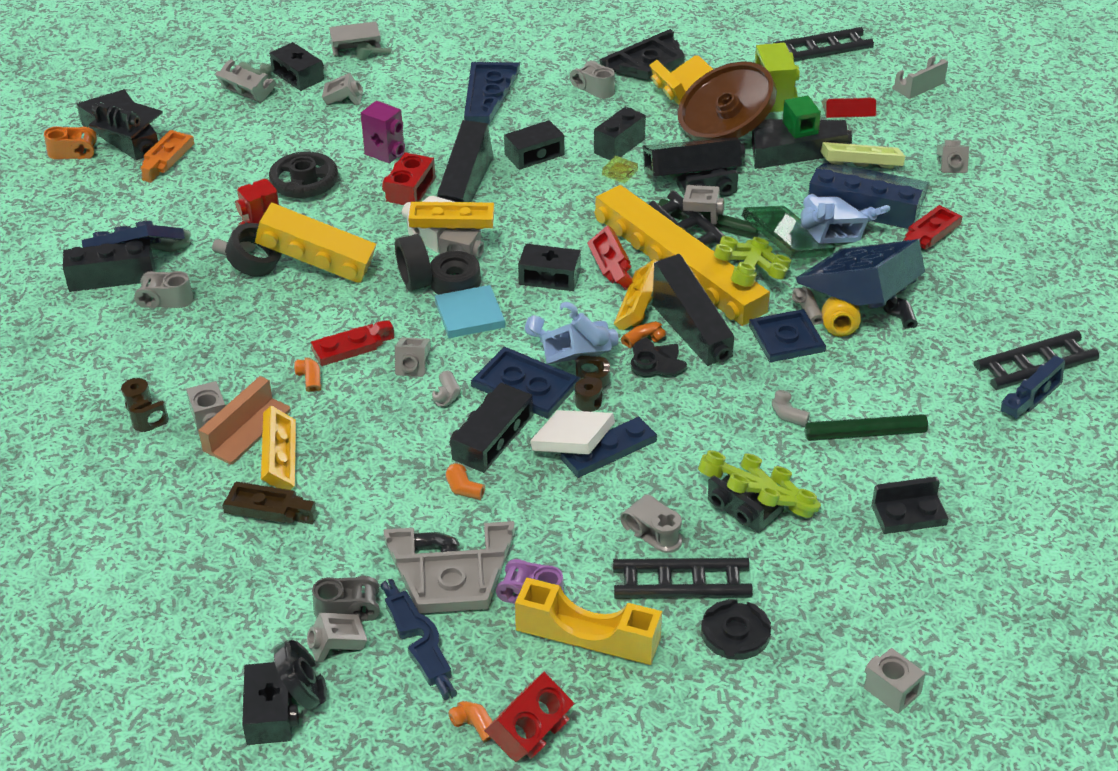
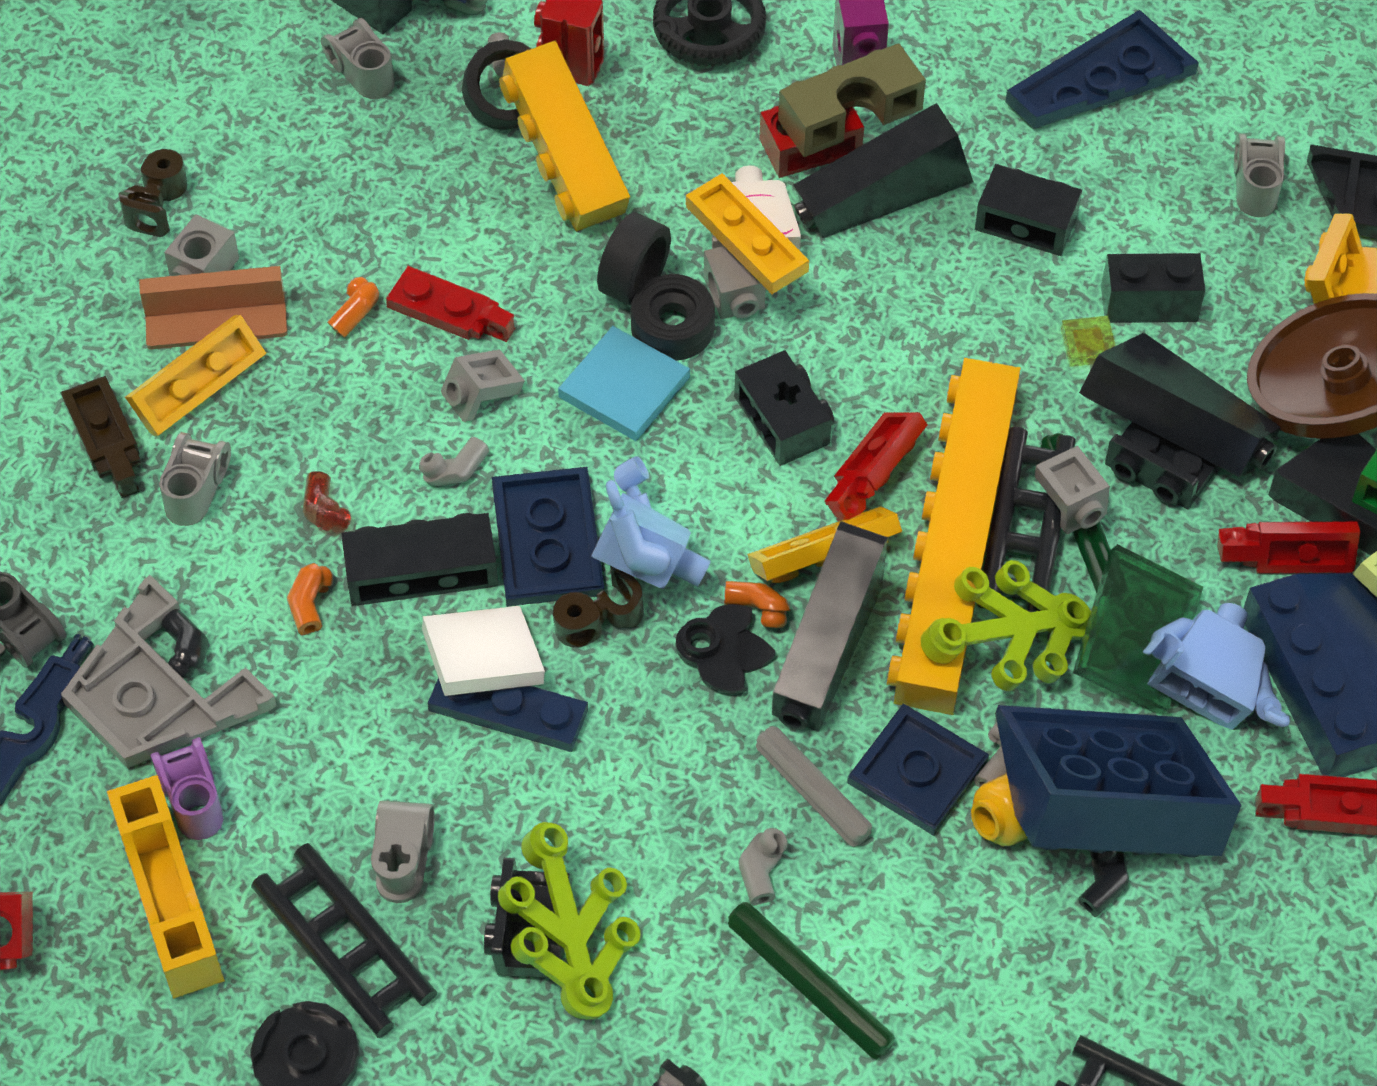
camera: 50 degrees right, 15 degrees up
(340, 484) = (192, 478): none -> light grey piece
(415, 152) = (881, 82): none -> olive arch
(416, 449) = (322, 509): none -> clear red arm
(762, 370) = (813, 786): none -> light grey axle
(792, 170) = (1292, 546): none -> red hinge

